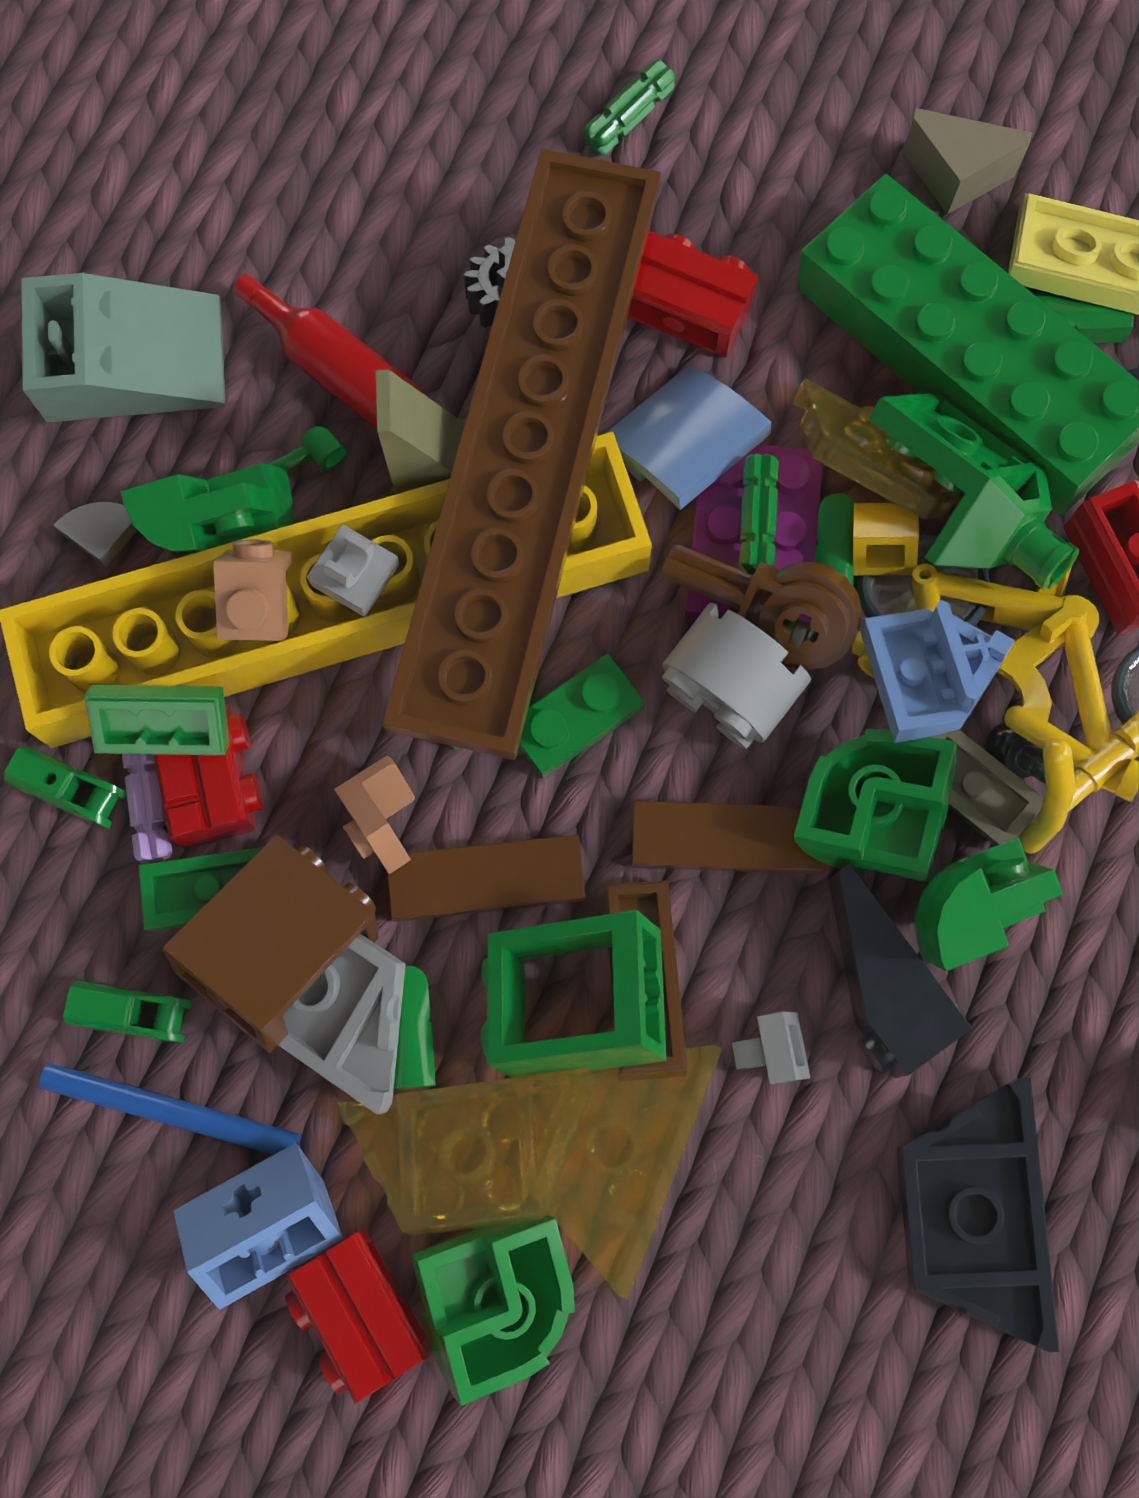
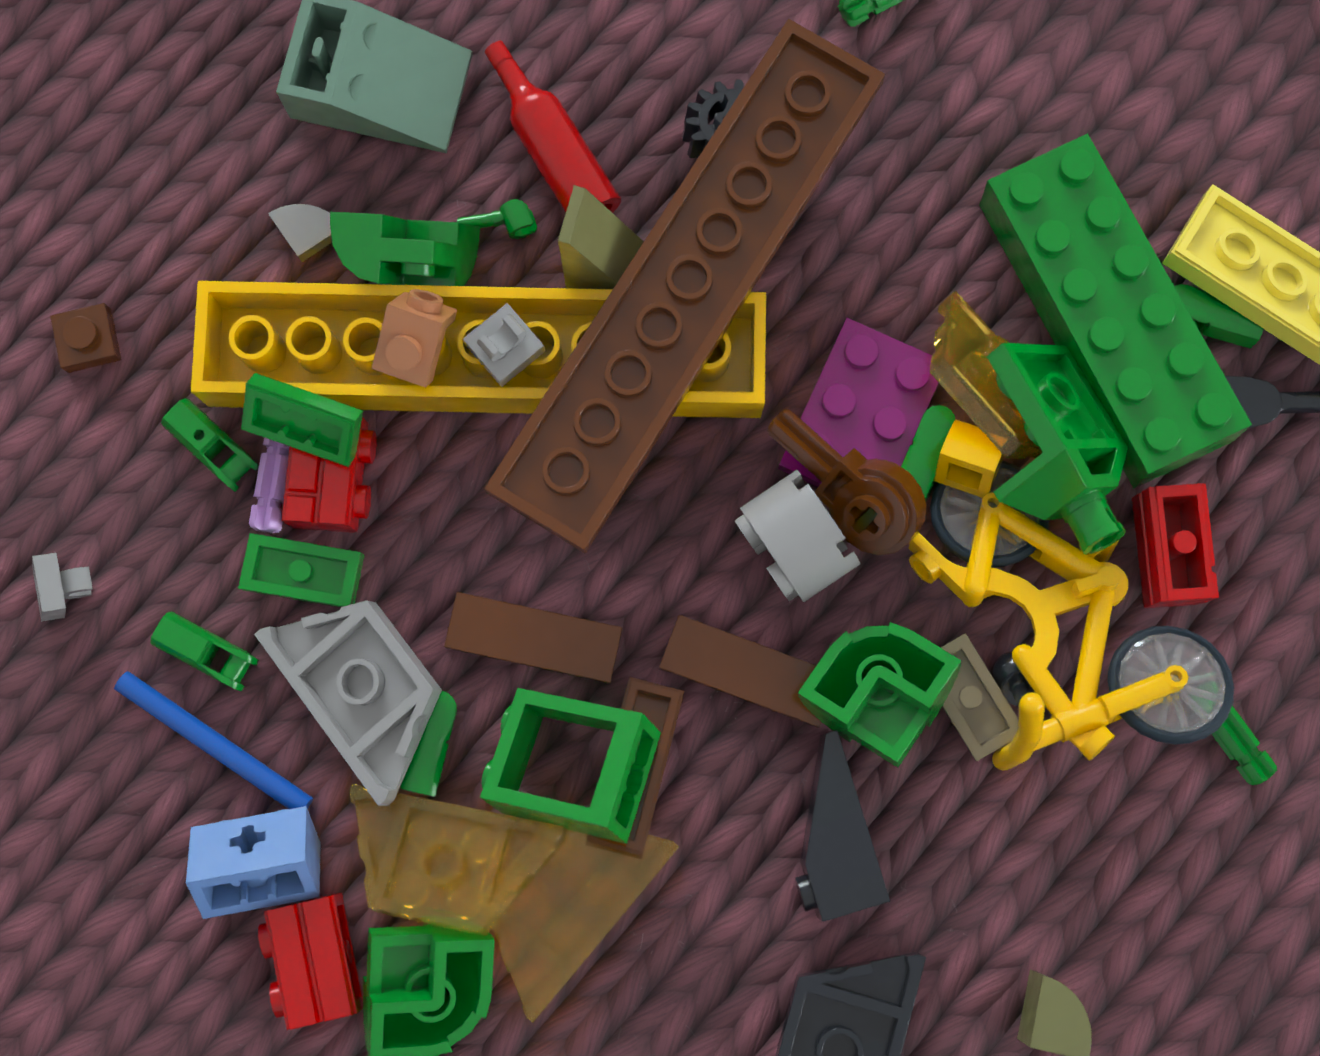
camera: 15 degrees right, 5 degrees up
(269, 938) = (338, 631): reddish brown panel -> none
(370, 800) = (455, 541): nougat bracket -> none
(578, 715) = (657, 524): green plate -> none
(688, 434) = (833, 309): medium blue slope -> none
(692, 293) = (883, 182): red brick -> none
(758, 512) = (869, 402): green axle -> none
(778, 1049) = (725, 861): light grey tile -> none
(930, 668) = (963, 590): medium blue slope -> none
(962, 156) = (1166, 133): dark tan slope -> none
(977, 897) = (929, 797): green brick -> none

